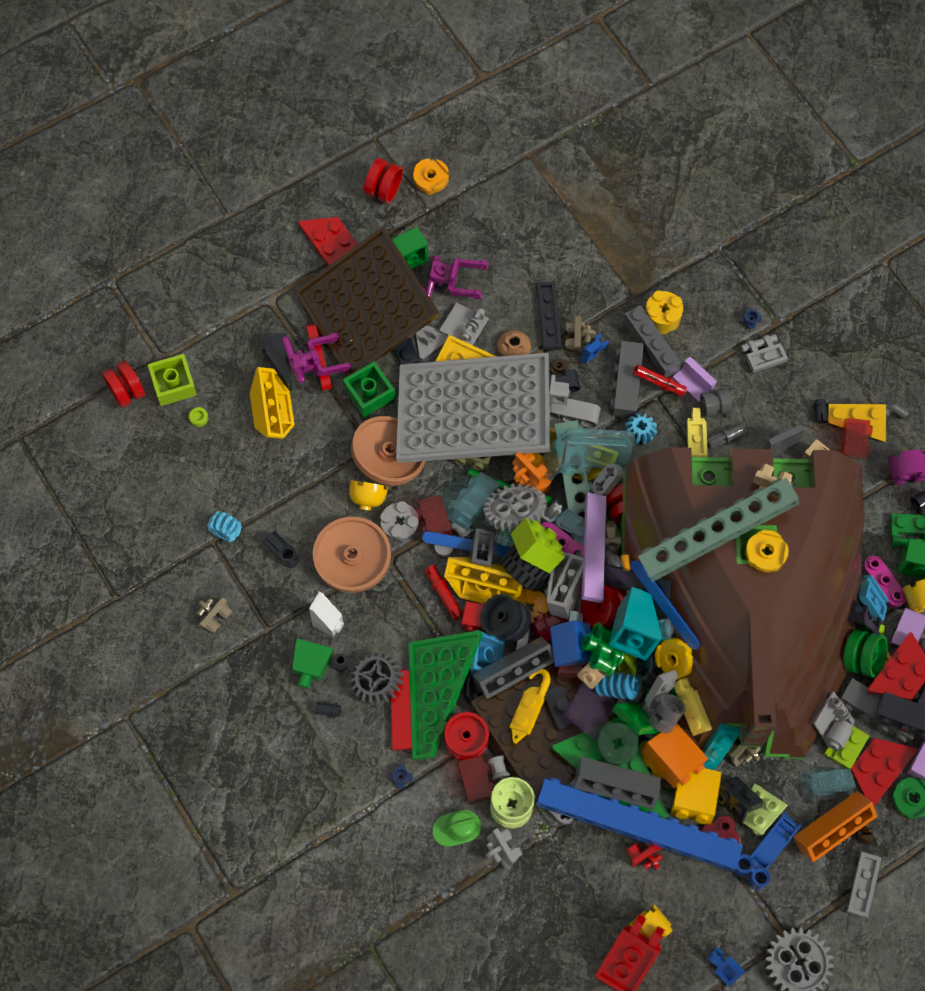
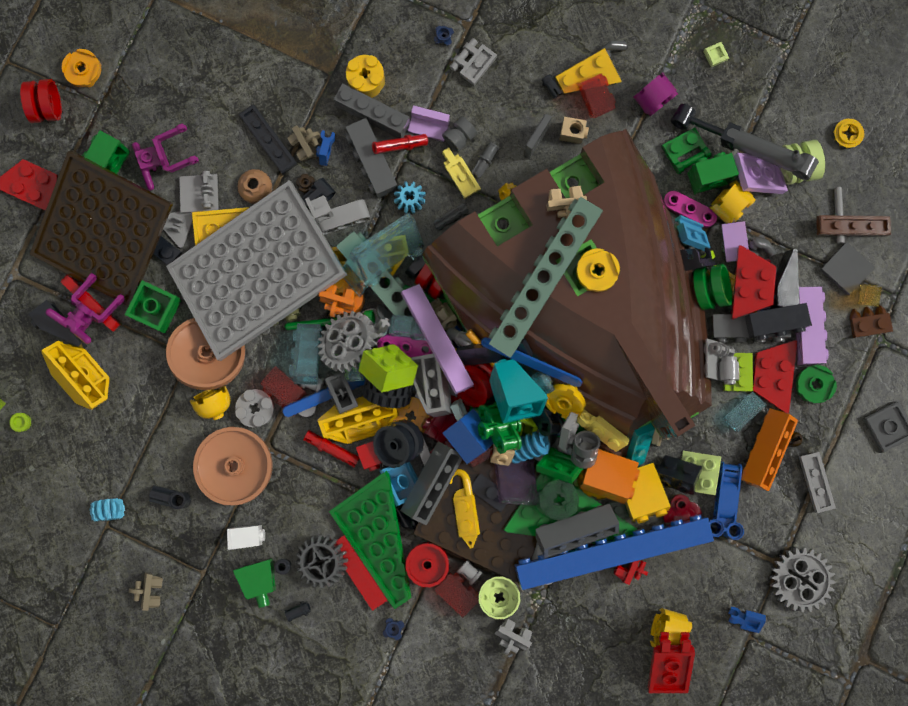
camera: 30 degrees left, 15 degrees up
(456, 828) = (465, 641): bright green piece -> none
(607, 479) = (408, 267): light grey beam -> none

